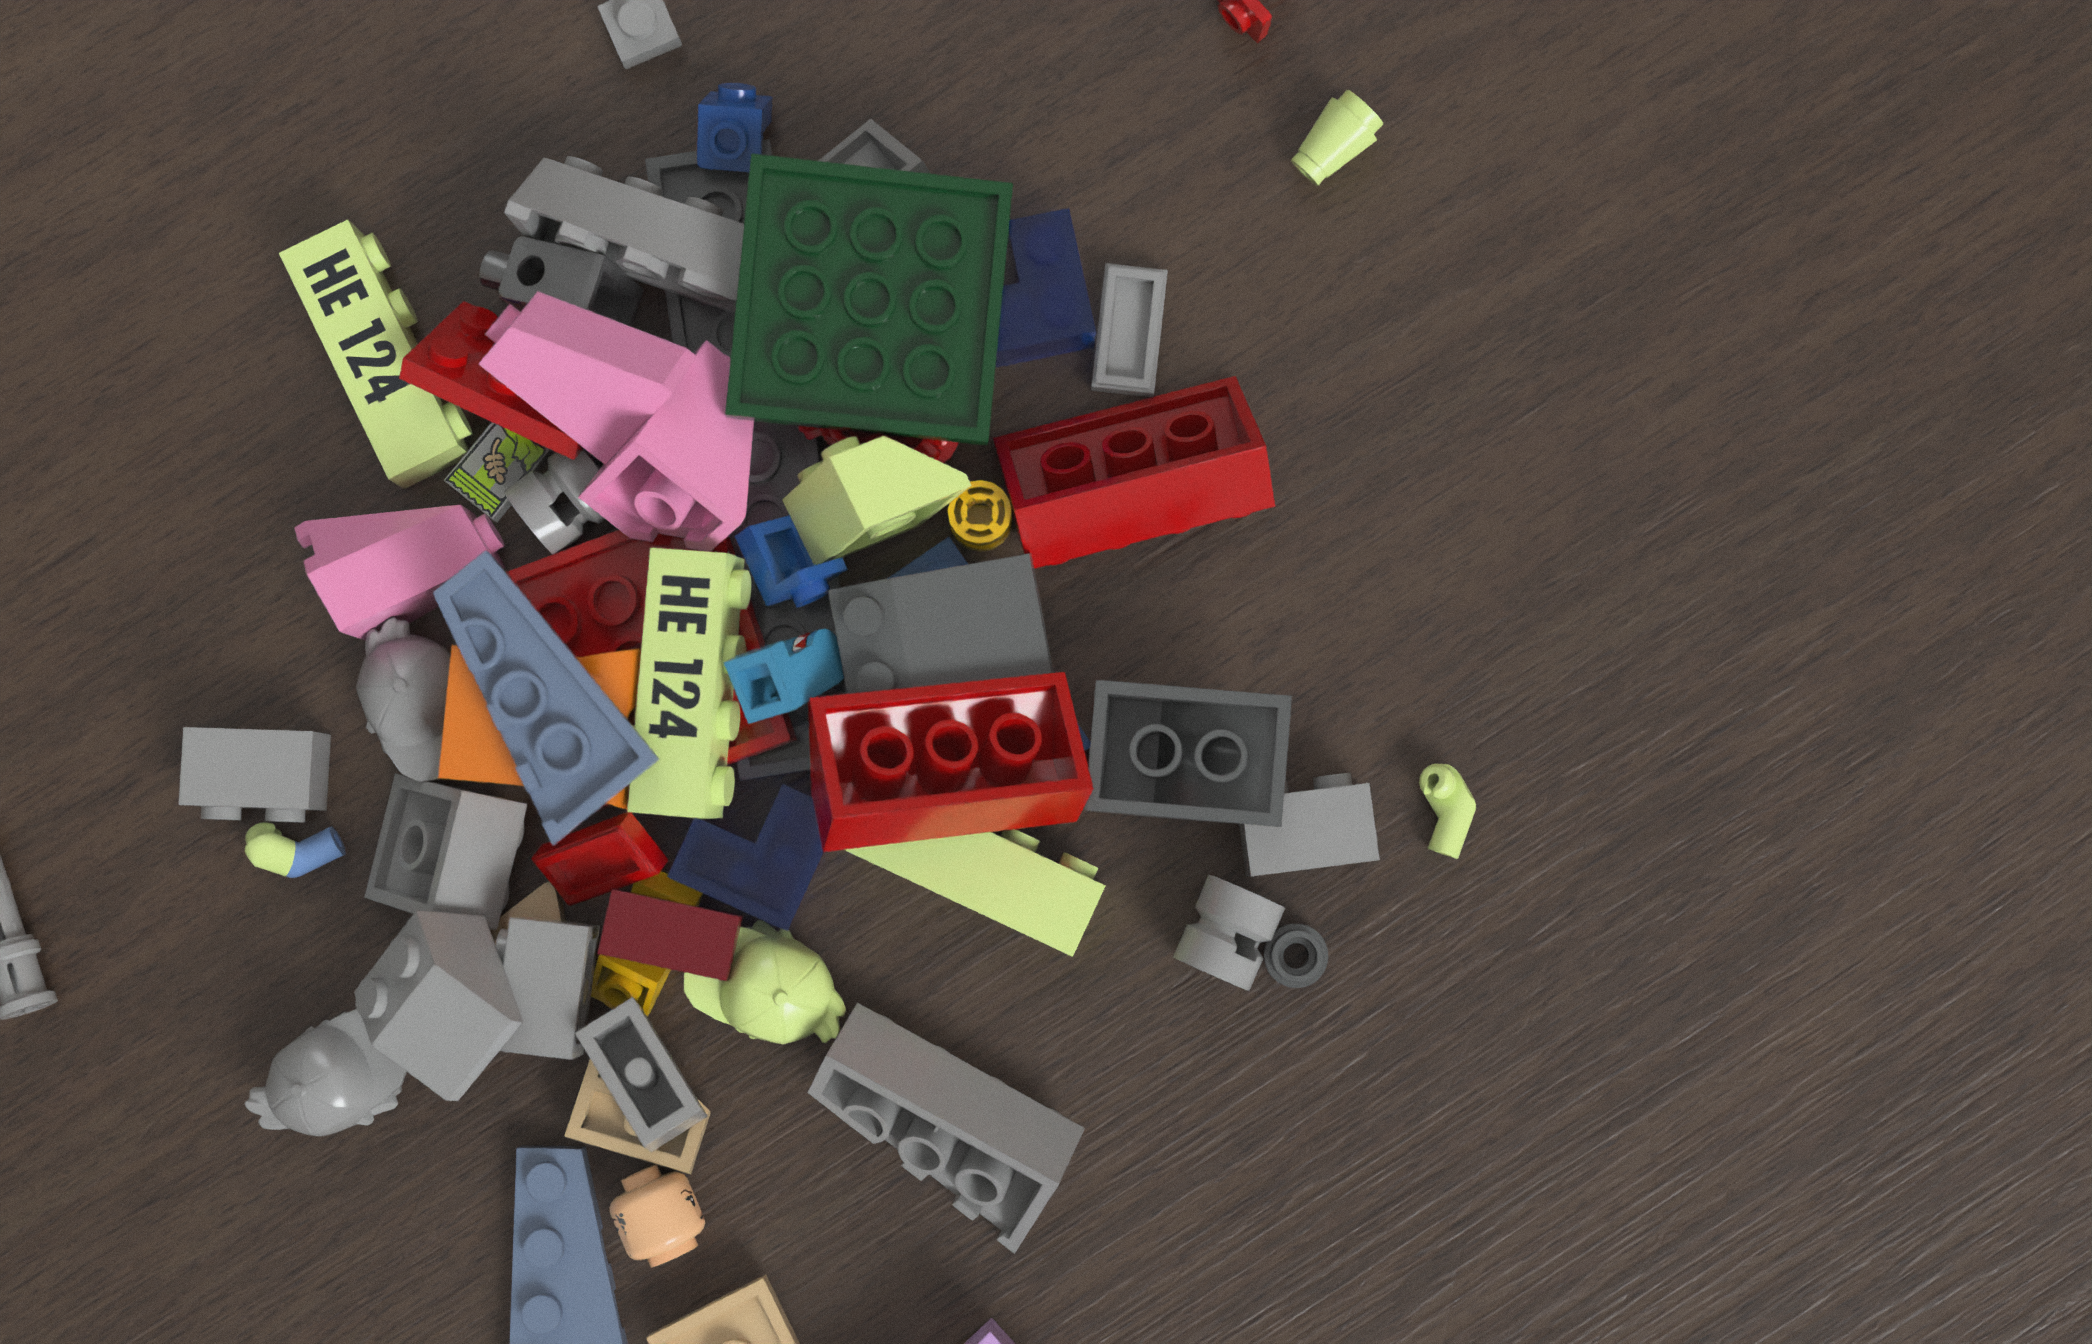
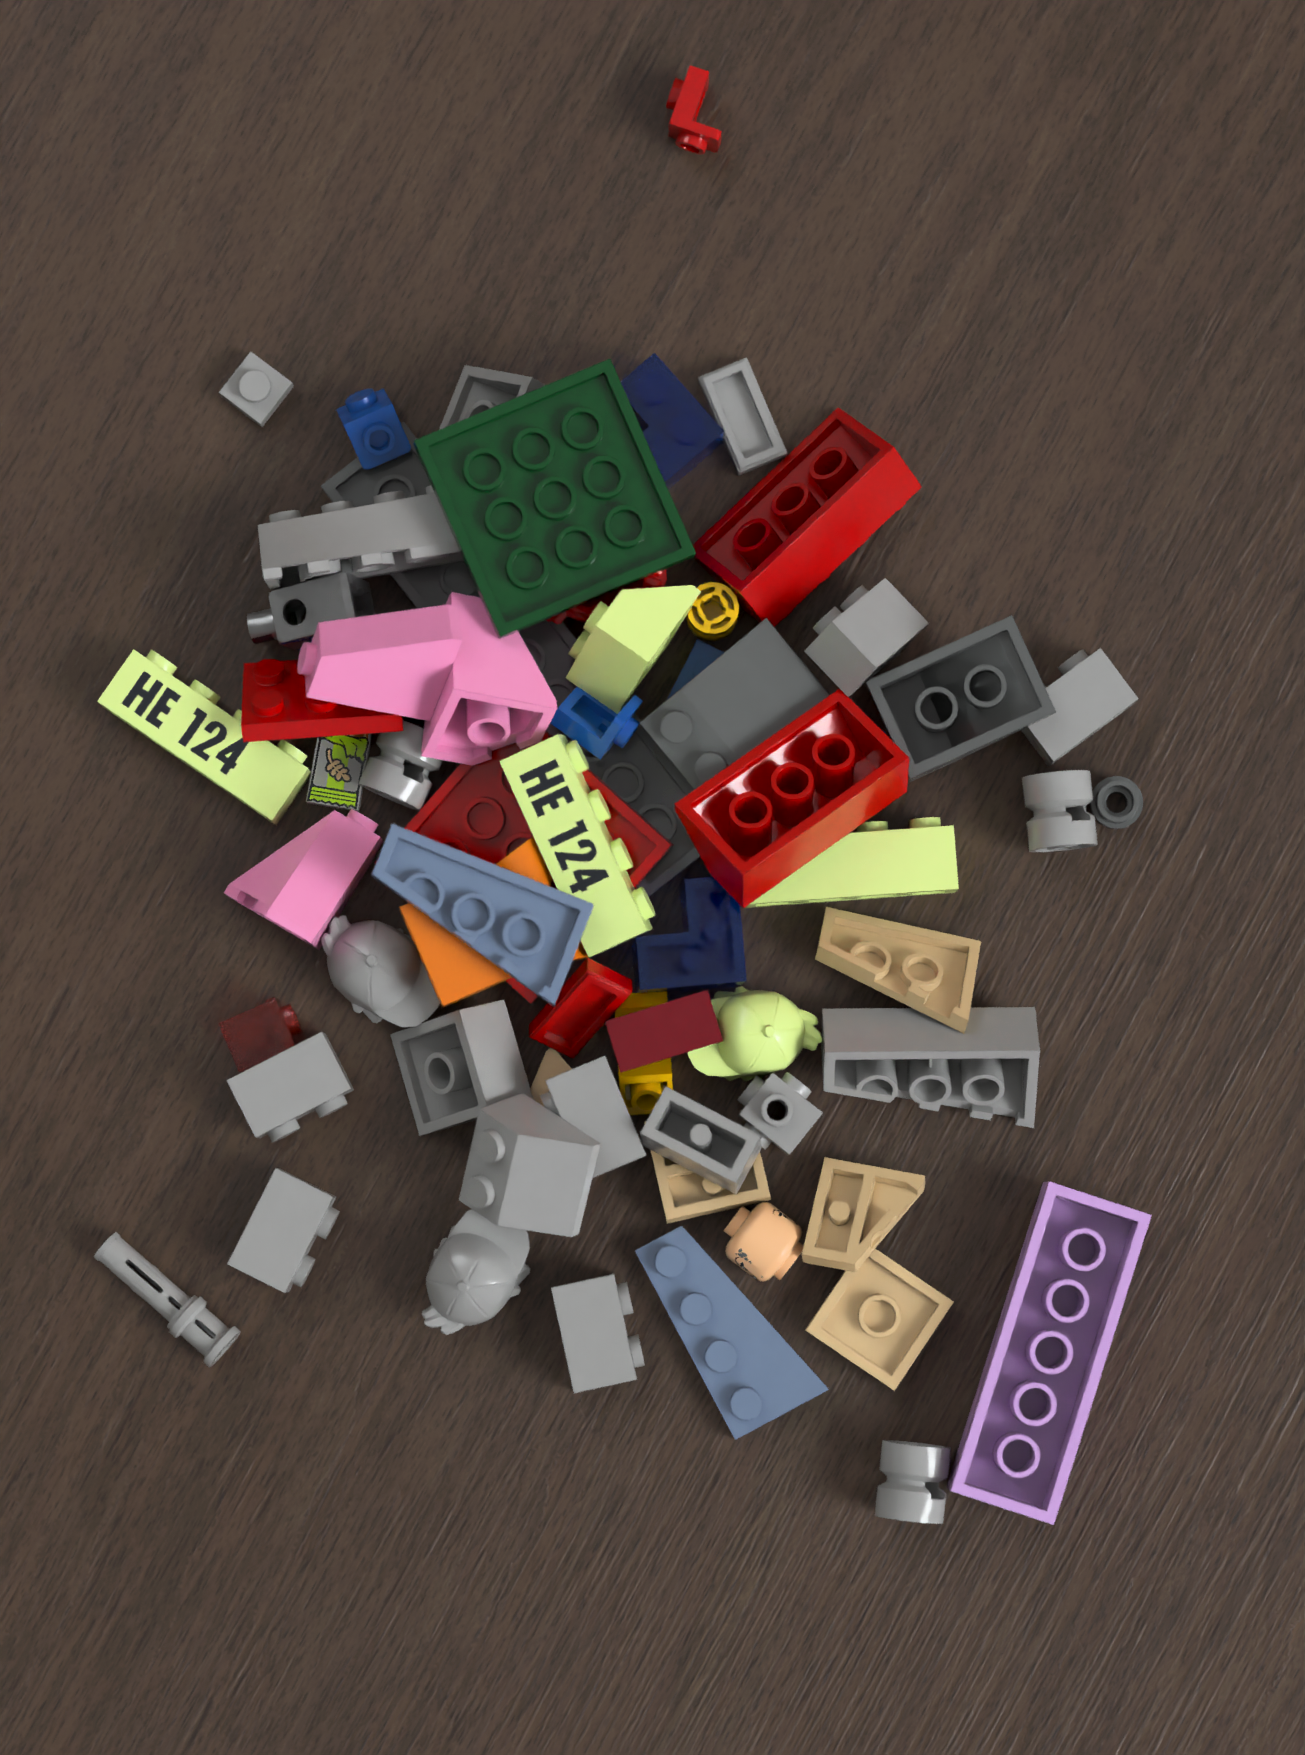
camera: 30 degrees left, 0 degrees up
(159, 919) = (283, 1231): none -> light grey brick
(259, 697) = (260, 1033): none -> clear red bracket
(284, 856) = (347, 1136): arm -> none
(424, 1214) = (596, 1333): none -> light grey brick
(740, 1111) = (799, 1112): none -> light grey brick
(770, 1240) = (856, 1211): none -> tan wing
(785, 674) = (645, 798): dark azure leg -> none
(972, 1002) = (906, 962): none -> tan wing
(1123, 630) = (864, 636): none -> light grey brick
(1337, 137) = (815, 192): yellowish green cone -> none
(1452, 805) = (1169, 632): yellowish green arm -> none

